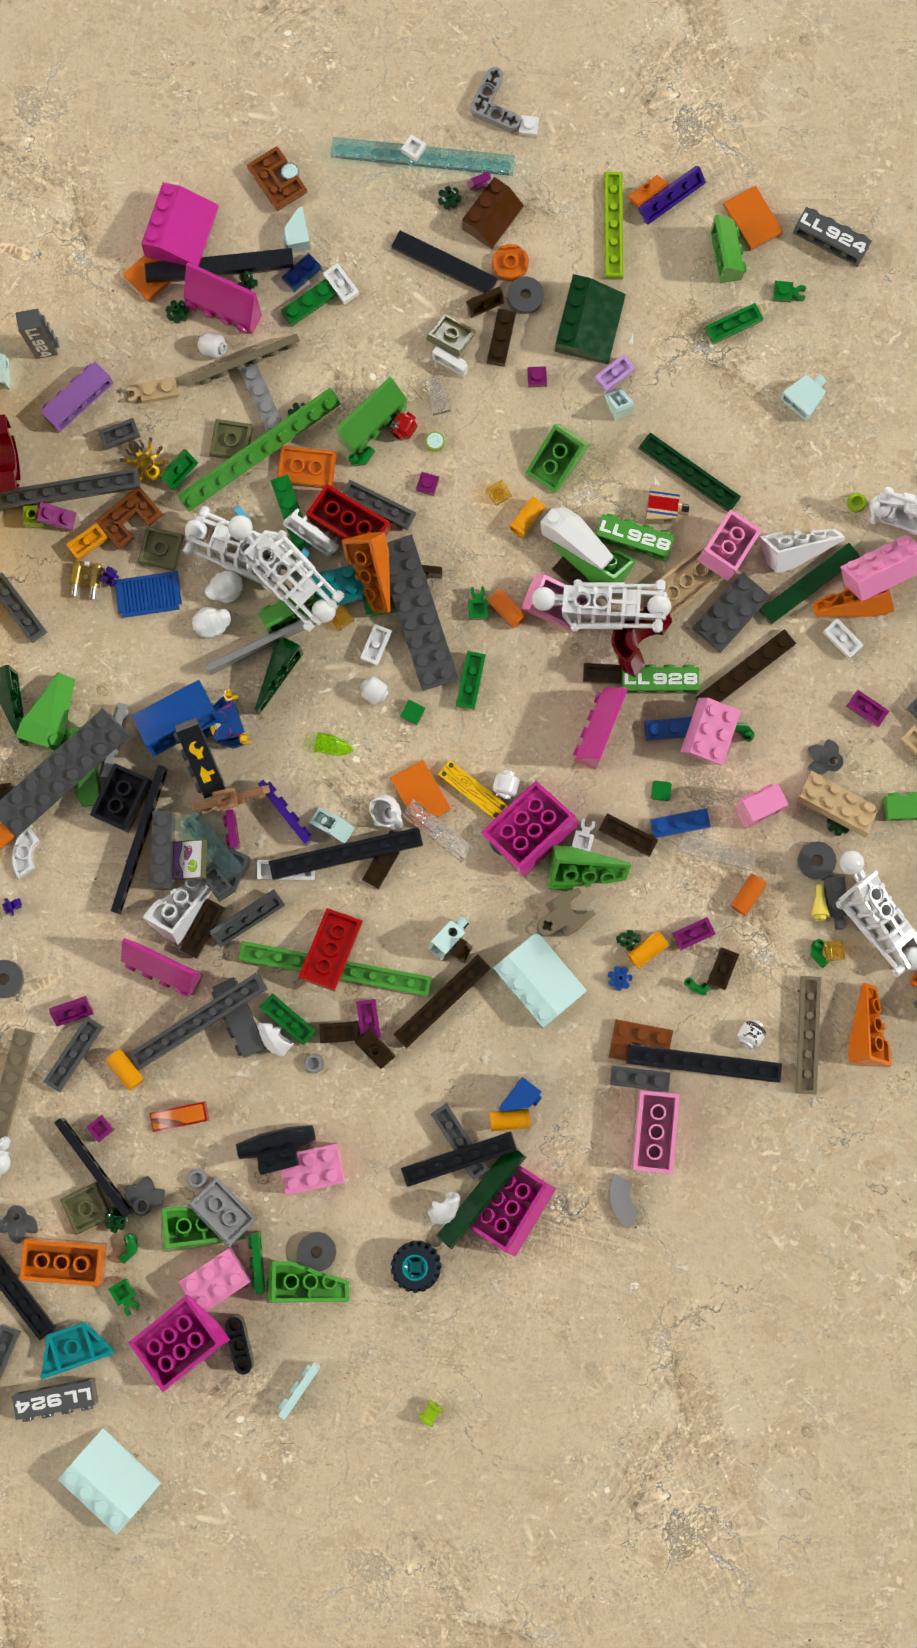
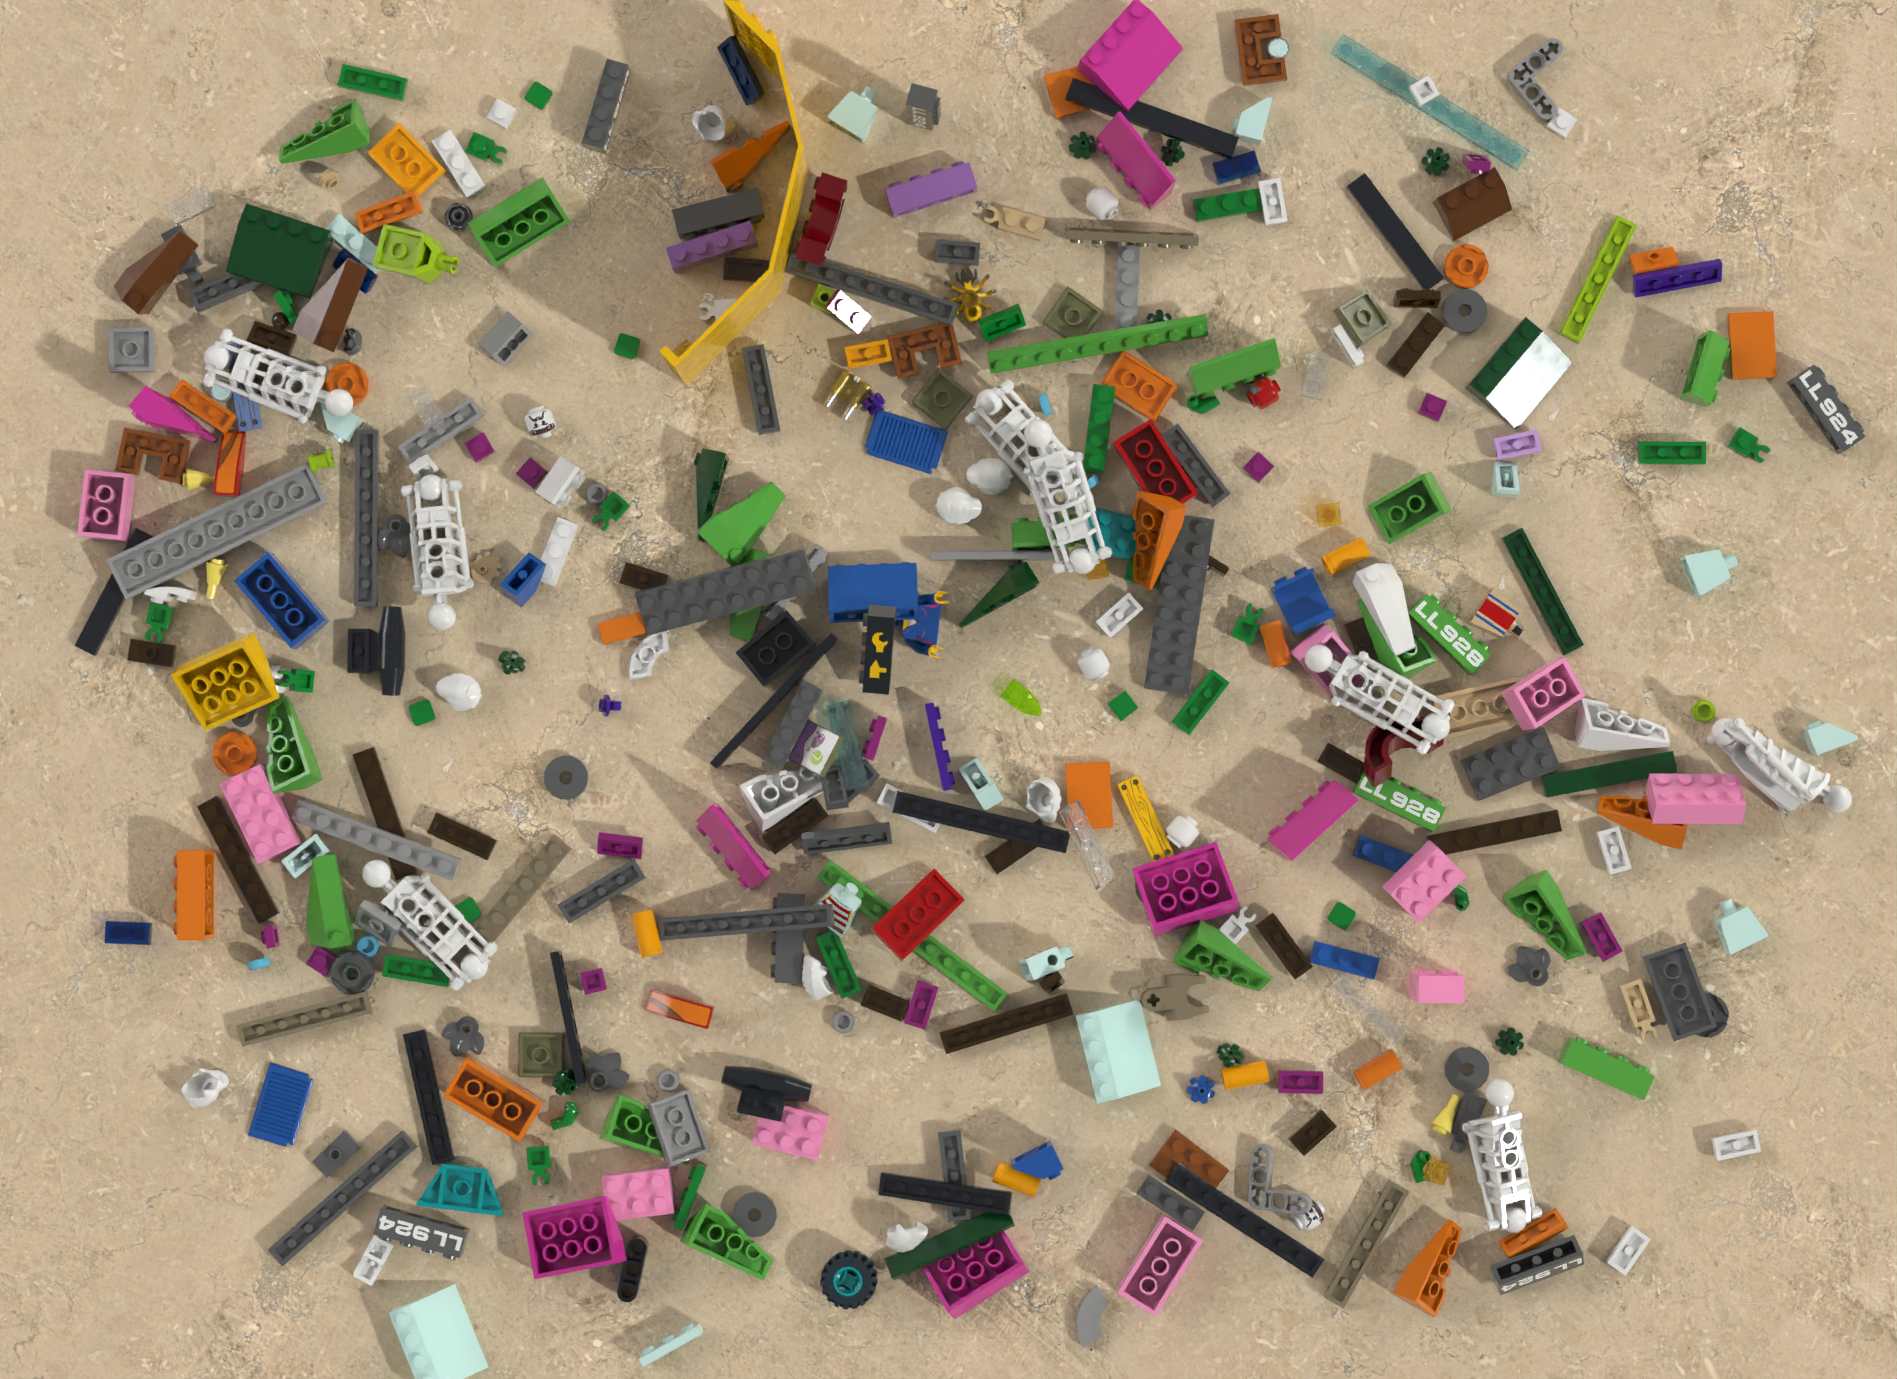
camera: 25 degrees right, 5 degrees up
(27, 1442) = (373, 1260): none -> white slope
(229, 799) = (888, 708): medium nougat plate -> none
(270, 972) = (844, 906): none -> light aqua torso
(311, 533) = (1109, 464): white plate -> none
(374, 1048) = (913, 1038): dark brown plate -> none
(435, 441) = (1288, 425): light aqua tile -> none
(510, 567) = (1301, 601): none -> blue panel
(694, 987) = (1272, 1136): green arm -> none
(713, 1034) = (1268, 1194): none -> light grey beam
(812, 708) = (1543, 907): none -> bright green wedge
(838, 804) = (1518, 1022): tan plate -> none

